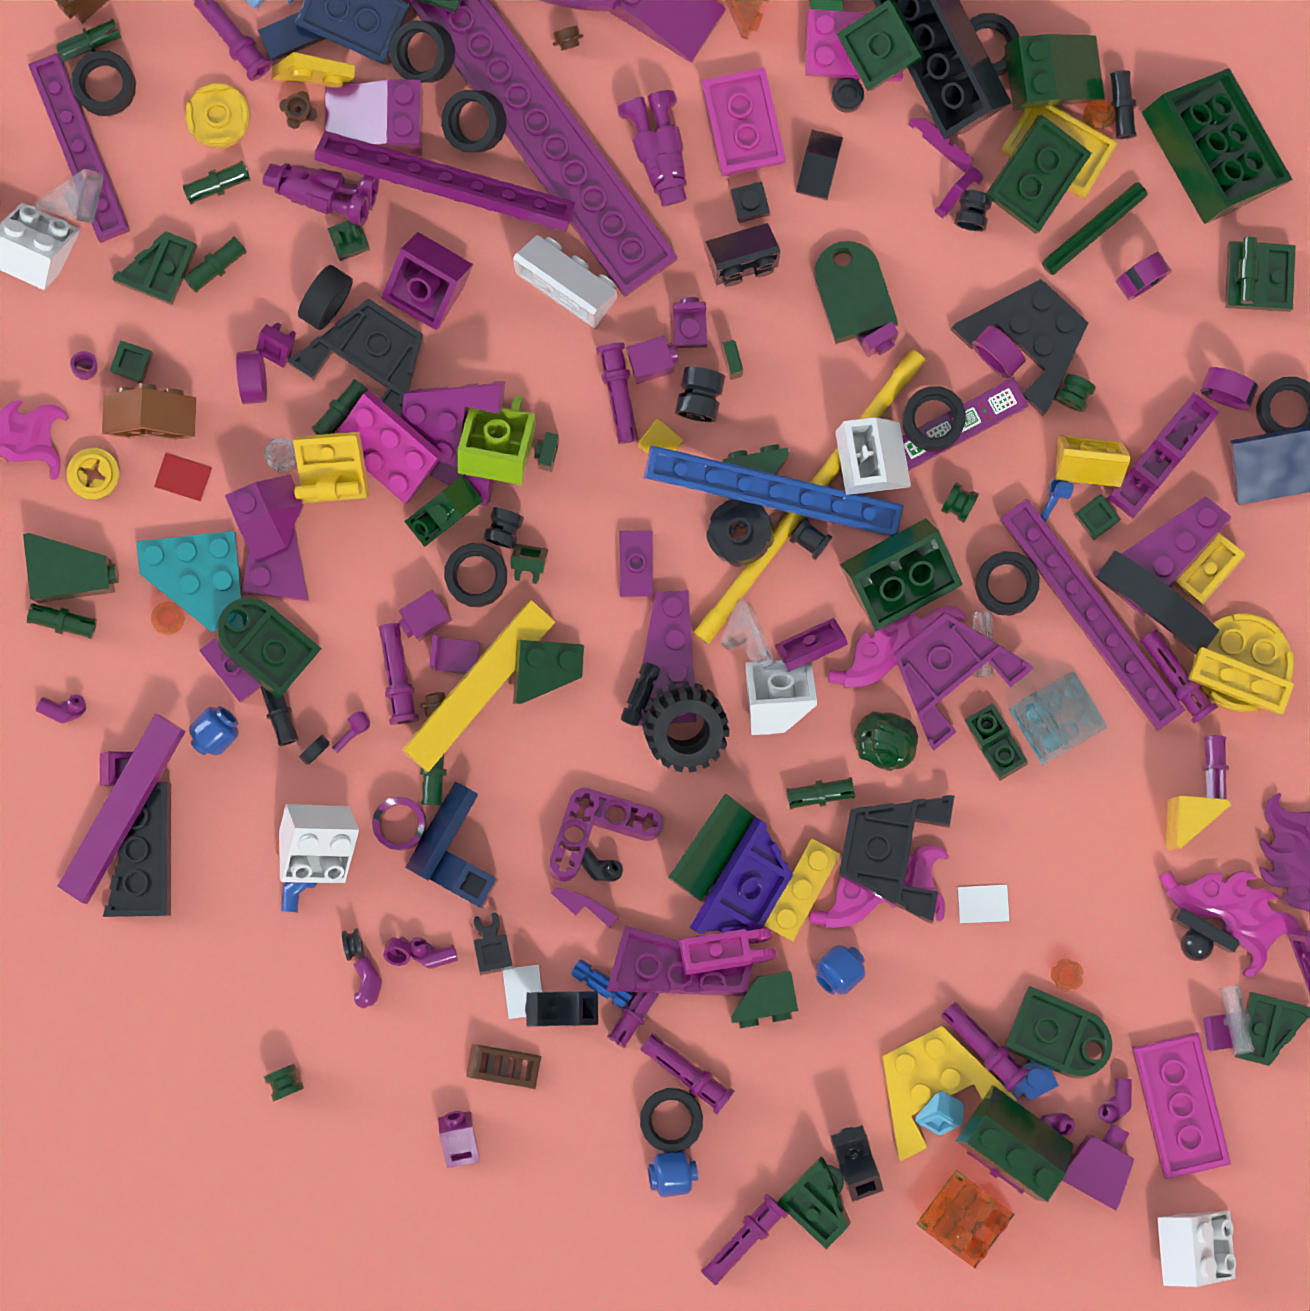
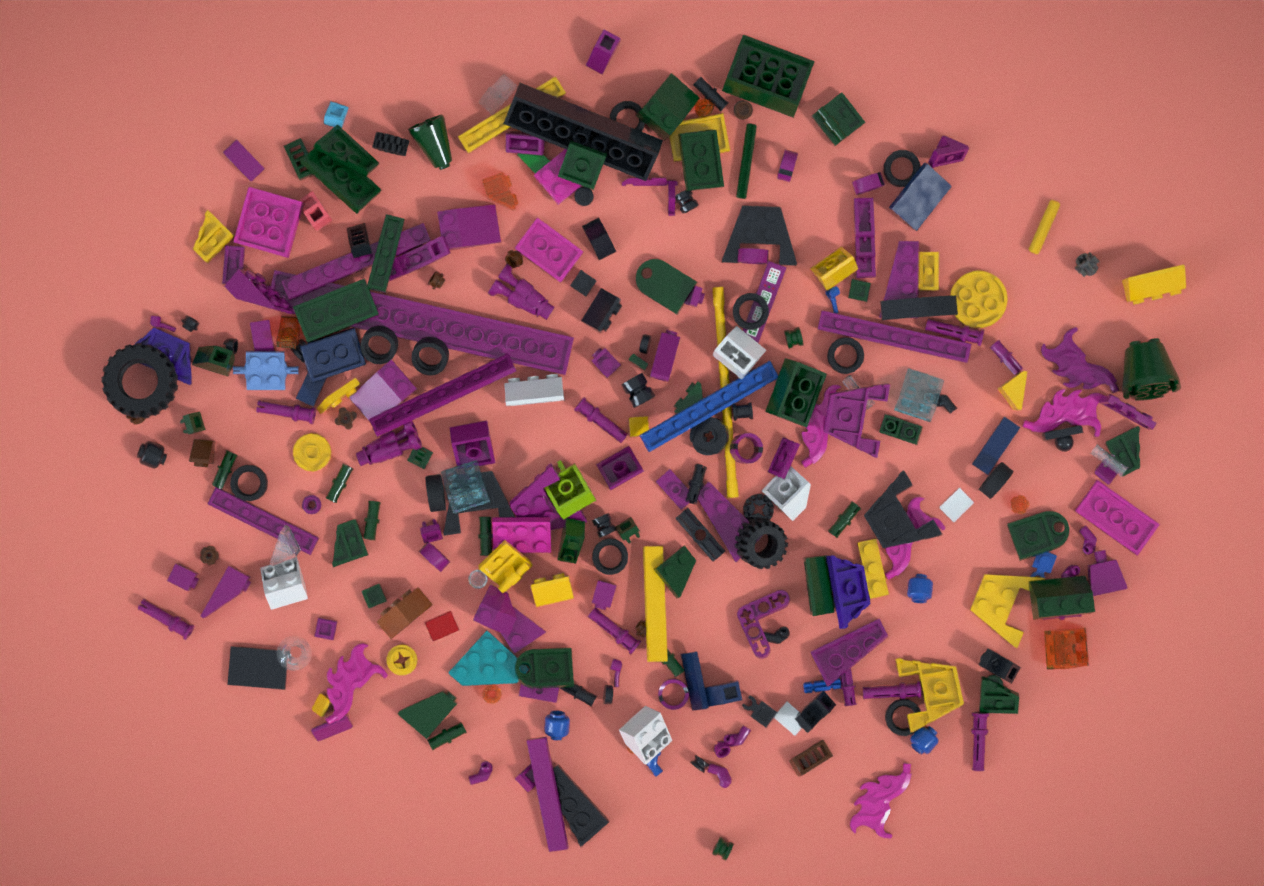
camera: 40 degrees left, 5 degrees up
(33, 351) = (325, 629): none -> magenta tile
(84, 360) = (352, 613): magenta hinge -> none
(155, 170) = (307, 509): none -> magenta plate
(361, 550) = (552, 590): none -> yellow slope
(368, 323) = (465, 486): none -> clear light blue bracket
(453, 654) = (632, 599): magenta bracket -> none
(458, 1139) = (819, 806): bracket -> none
(539, 1199) = (876, 801): none -> dark pink piece
(546, 451) = (592, 474): dark green plate -> none
(576, 902) = (780, 660): magenta slope -> none
(588, 475) = (620, 468): none -> magenta slope
(616, 626) = (709, 543): none -> black piece
(640, 693) = (728, 545): black axle -> none
(652, 359) = (603, 392): magenta brick -> none
(668, 578) = (696, 484): none -> black pin
(689, 94) = (514, 258): none -> reddish brown plate
(724, 950) = (863, 625): dark pink hinge -> none
(732, 671) = (758, 499): none -> black gear
(745, 628) = (749, 475): clear slope -> none
(751, 1123) = (939, 689): none -> yellow wing
(761, 344) = (645, 344): none -> black tile
(767, 997) = (898, 629): dark green slope -> none
(771, 381) = (665, 356): none -> magenta slope
(793, 597) = (758, 448): none -> magenta piece
(886, 740) = (853, 471): dark green hair -> none
(941, 1114) = (1017, 612): medium azure slope -> none
(995, 1056) = (1019, 568): magenta pin -> none
(1064, 914) = (996, 480): none -> black tyre
(1075, 392) = (802, 243): dark green wheel -> none
(1085, 755) = (944, 401): none -> black arm
(1102, 871) = (996, 445): none -> dark blue tile
(1147, 161) = (743, 110): none -> reddish brown plate
(1196, 1248) = (1176, 573): white slope -> none
(1241, 681) = (985, 310): yellow plate -> none

